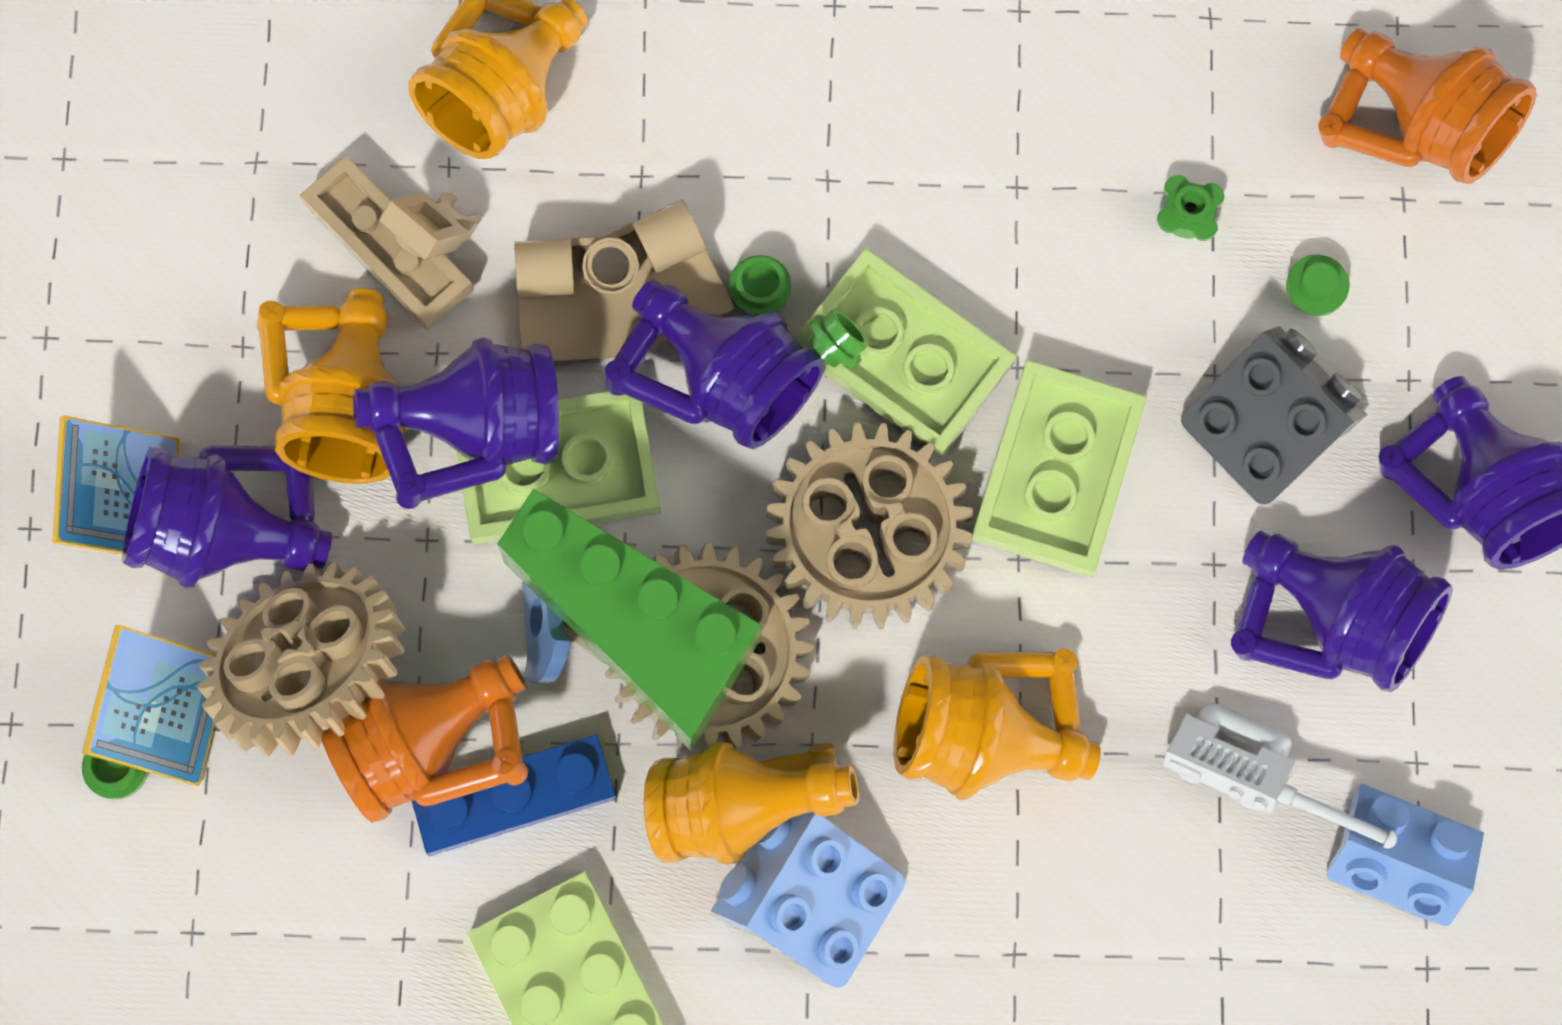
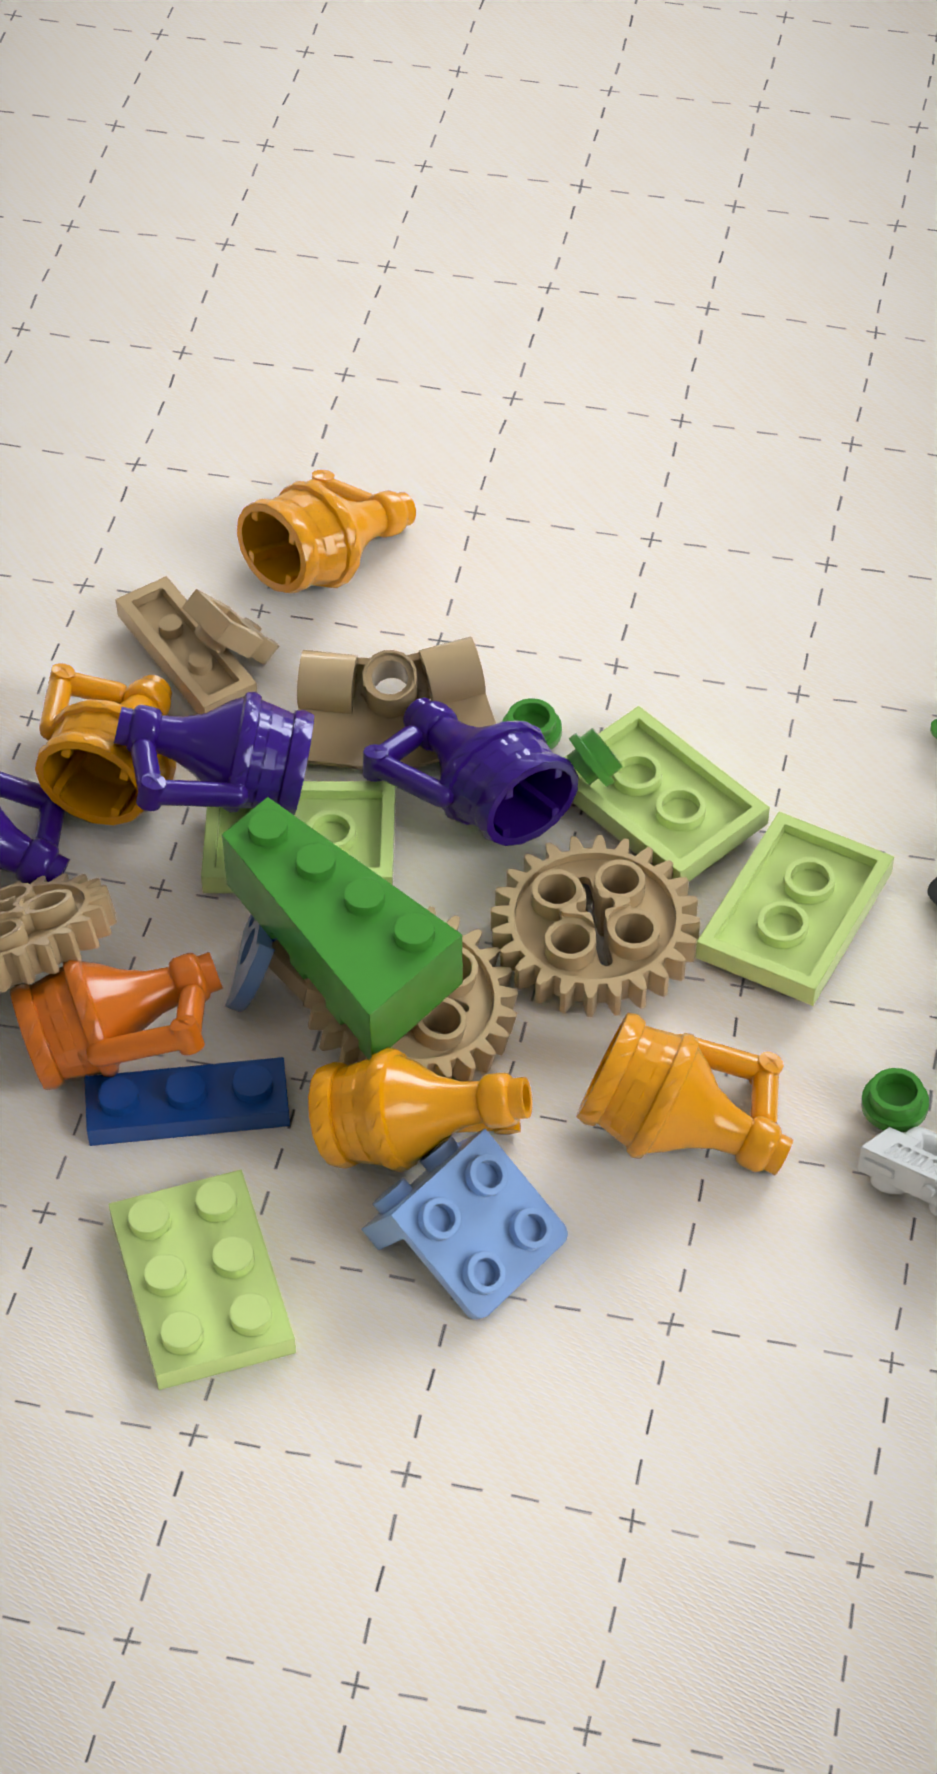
camera: 15 degrees right, 25 degrees down
(1186, 679) = (895, 1100): none -> bright green plate

